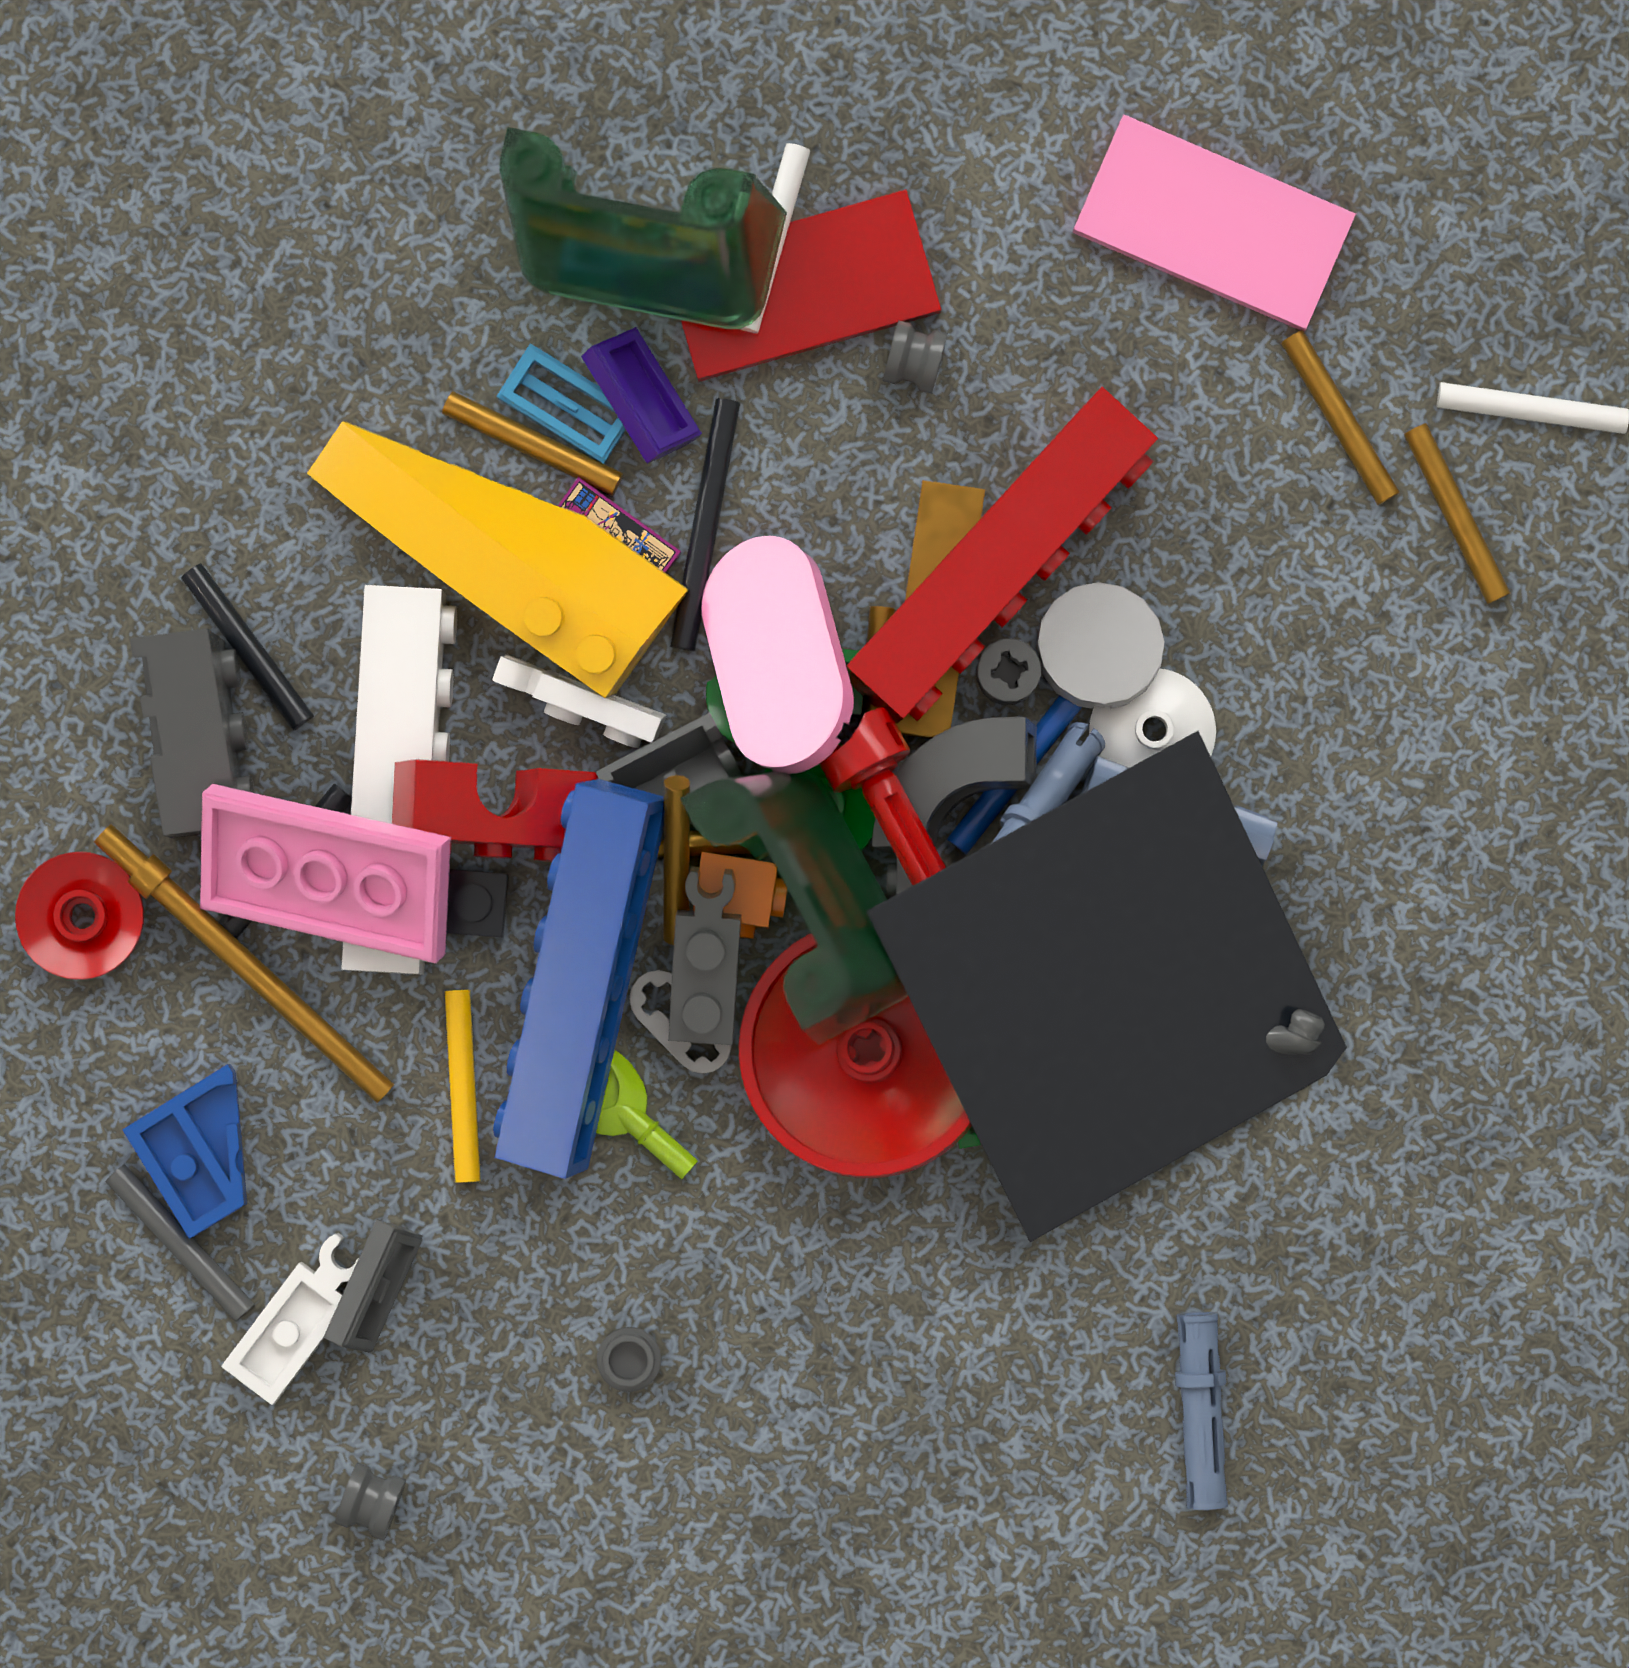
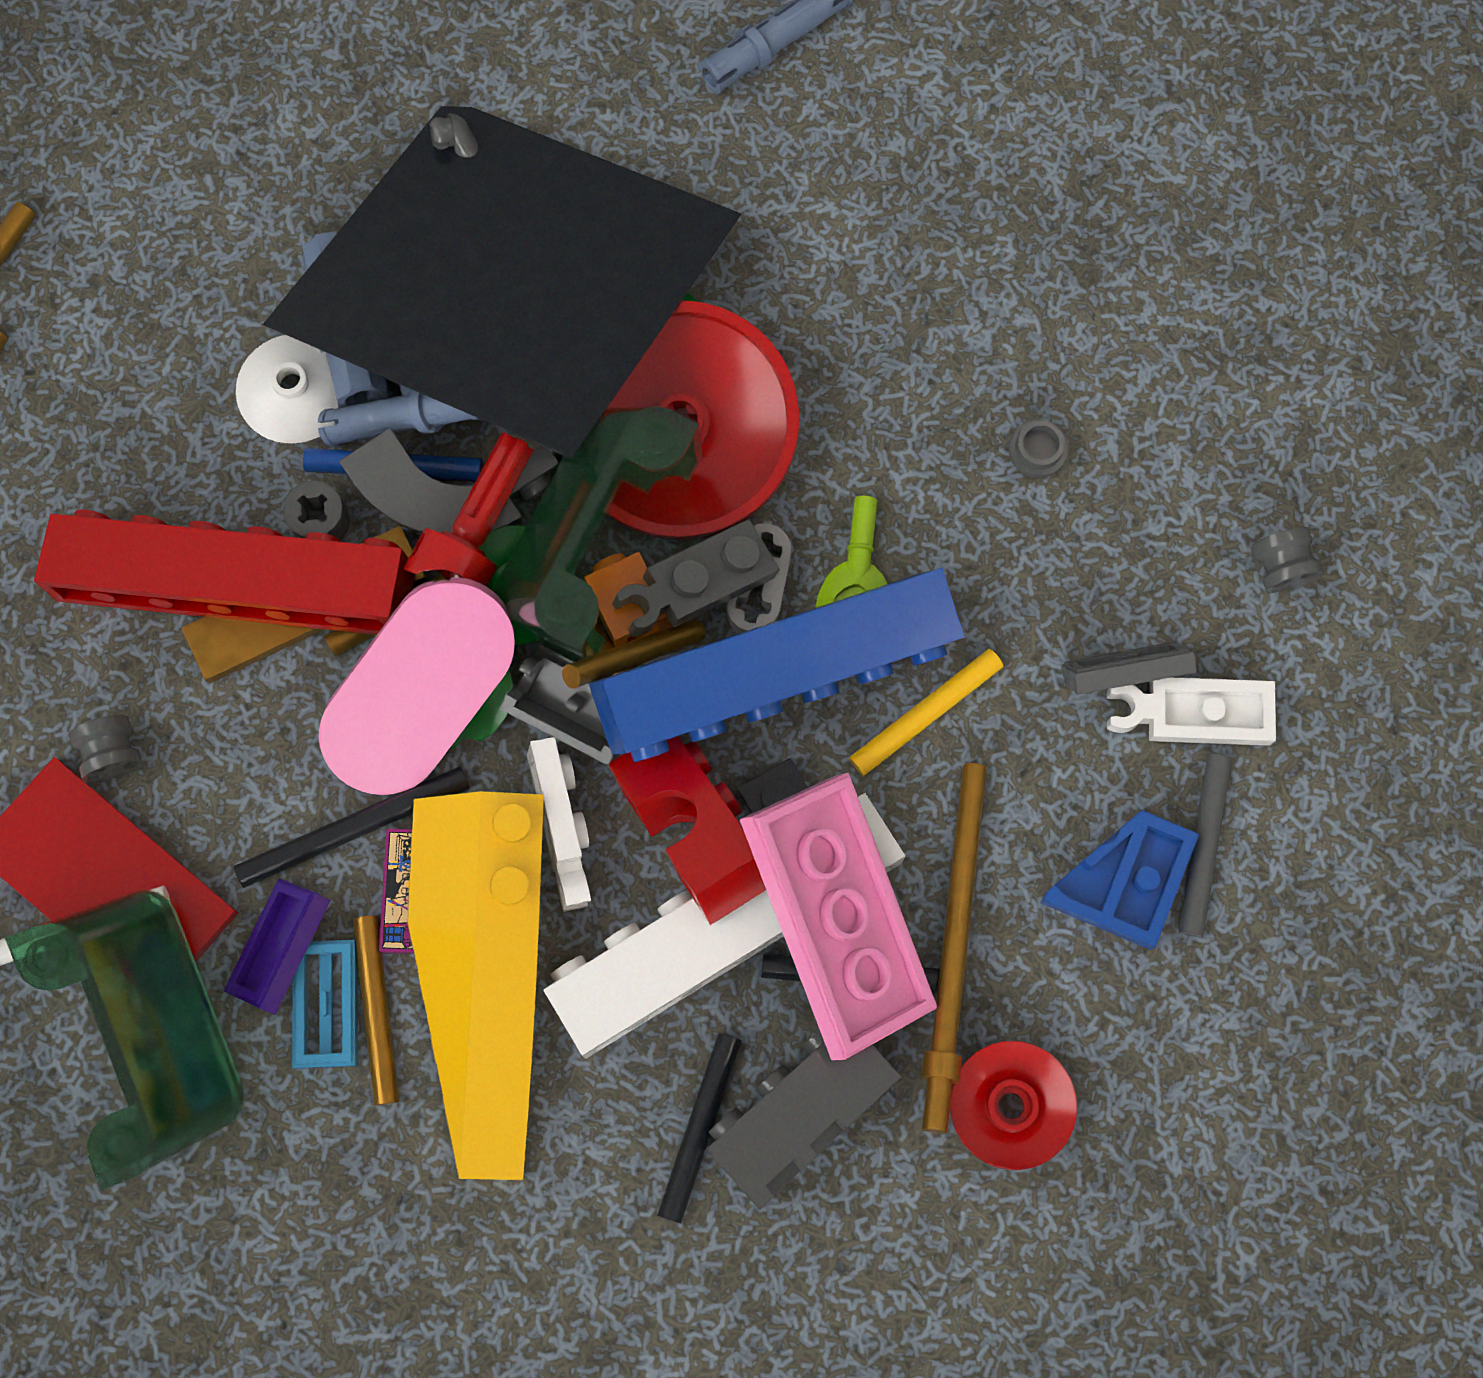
camera: 125 degrees left, 10 degrees down
(1100, 645) = (249, 461): light grey tile -> none

